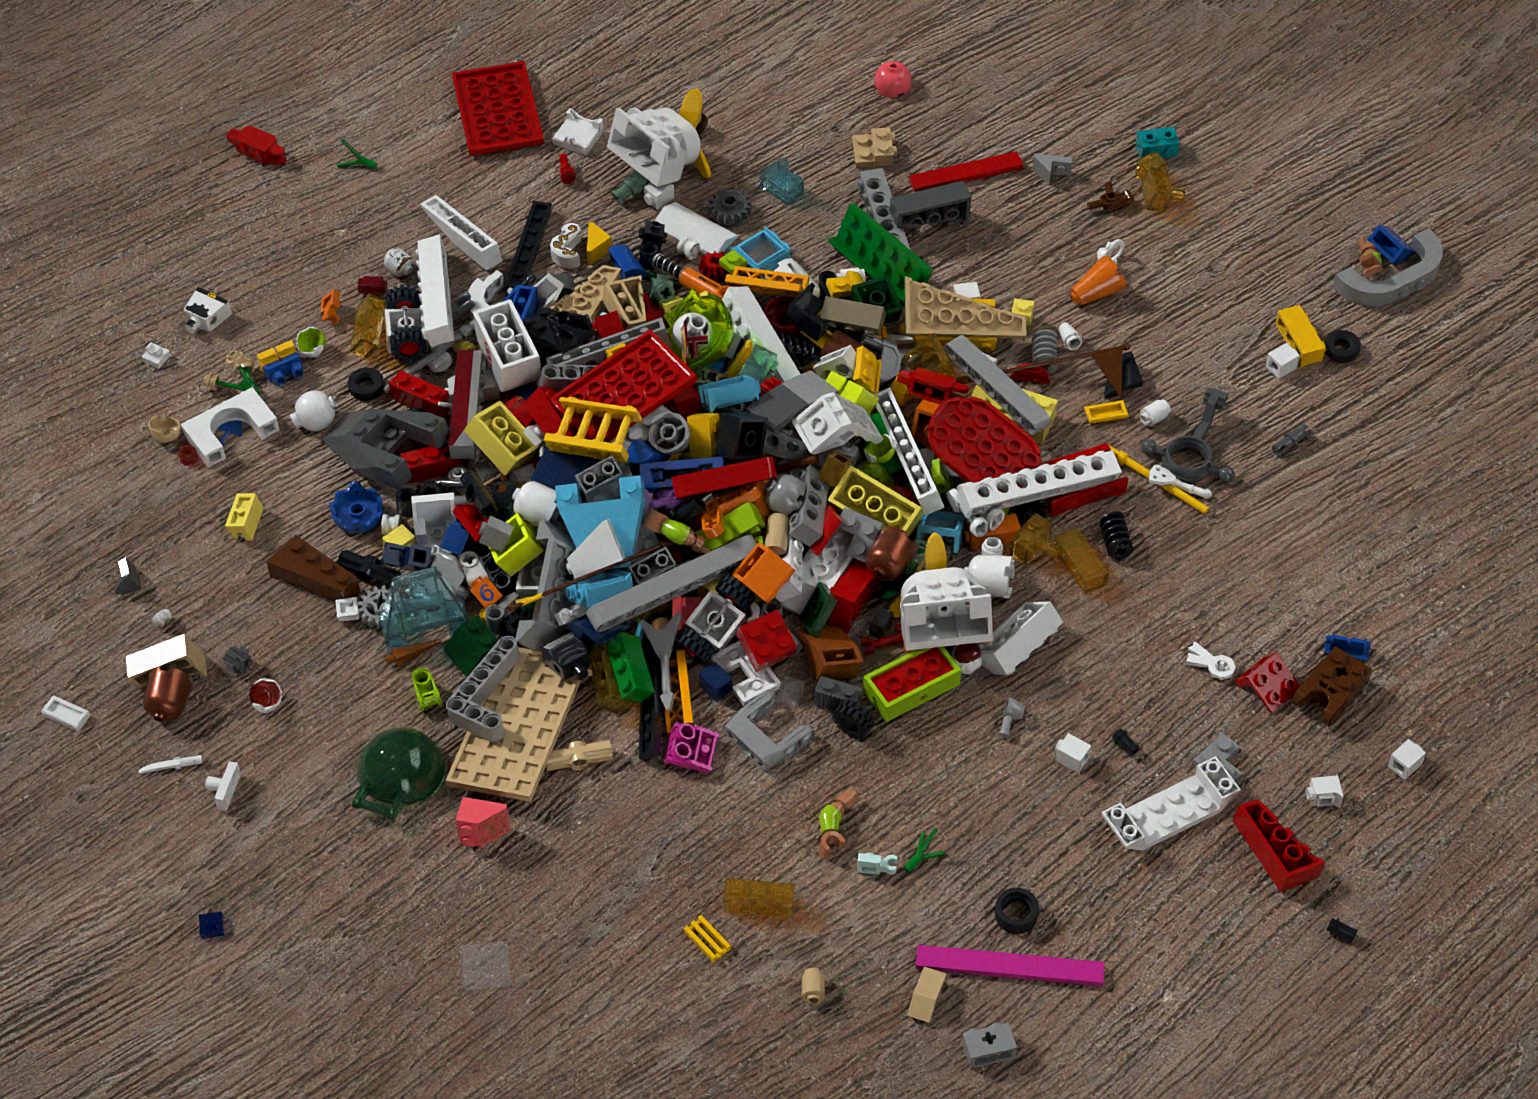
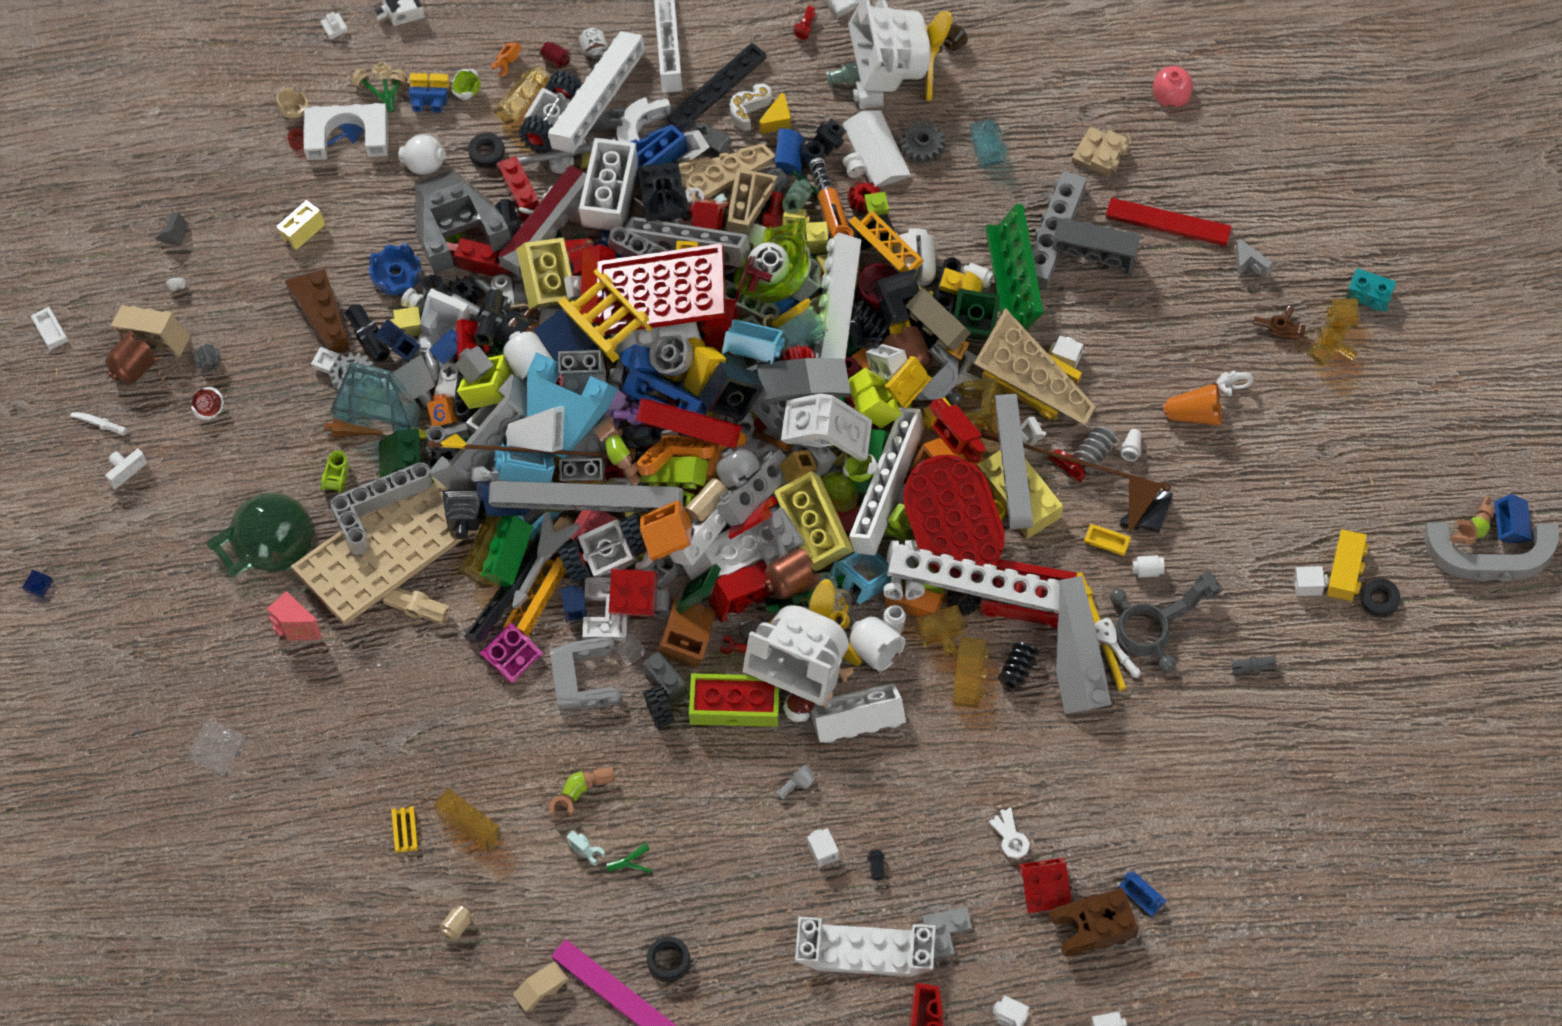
camera: 35 degrees right, 10 degrees up
(763, 250) = (914, 207): medium azure window -> none
(1024, 308) = (1104, 399): light yellow brick -> none
(1164, 500) = (1078, 653): none -> light grey wedge

